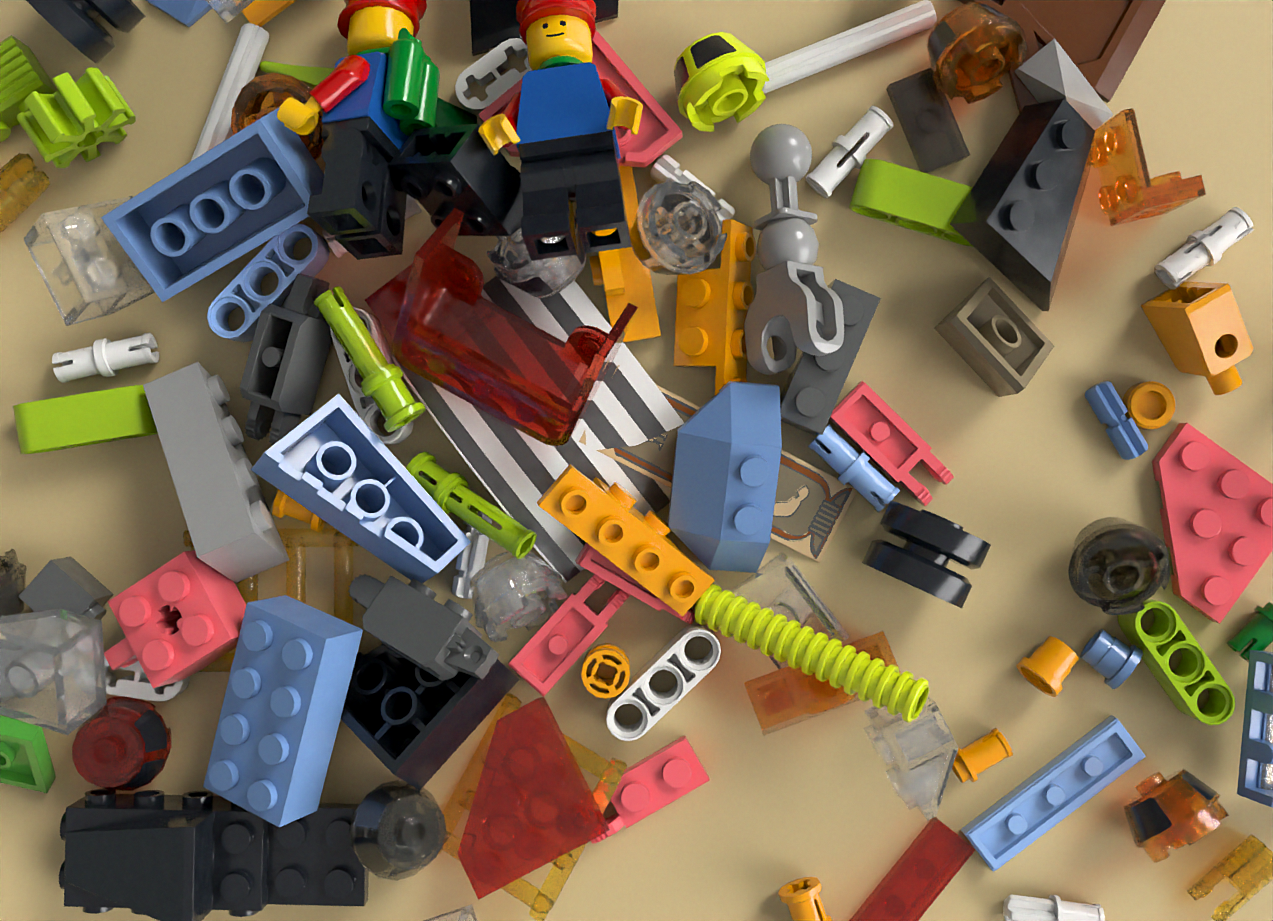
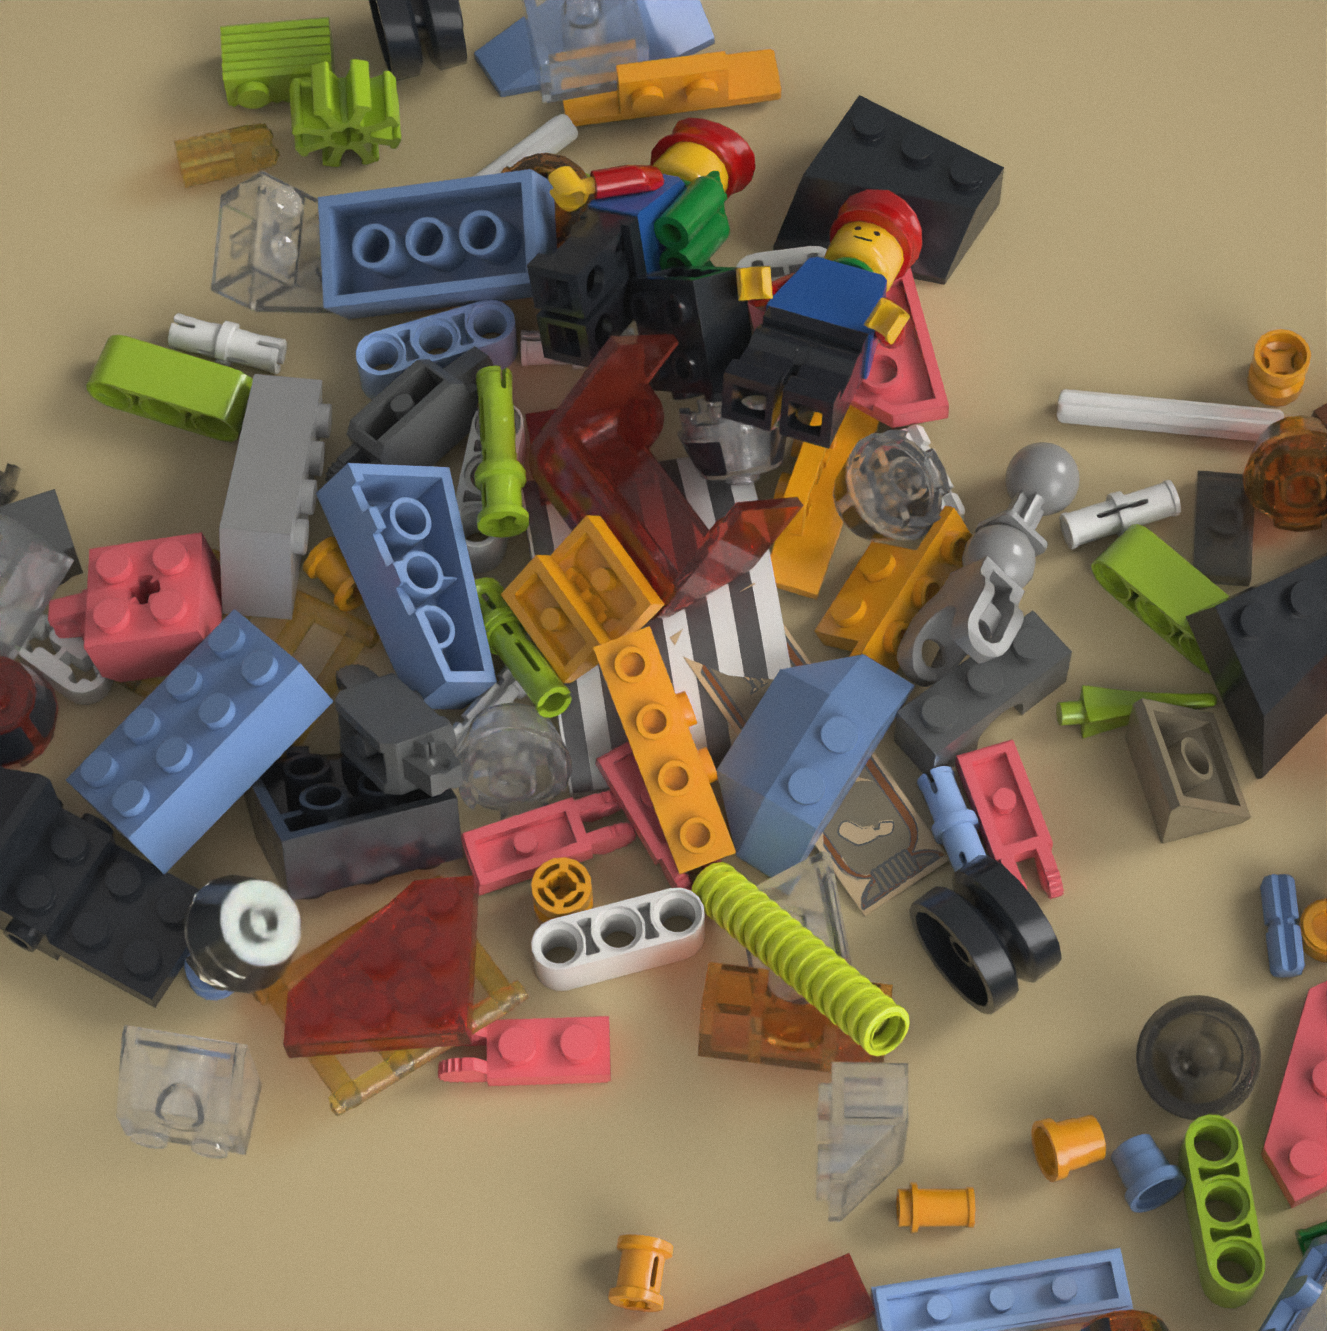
camera: 35 degrees right, 25 degrees down
(502, 454) = (581, 598): none -> light orange slope
(718, 80) = (1013, 378): neon yellow cone -> none
(913, 318) = (1109, 709): none -> lime piece

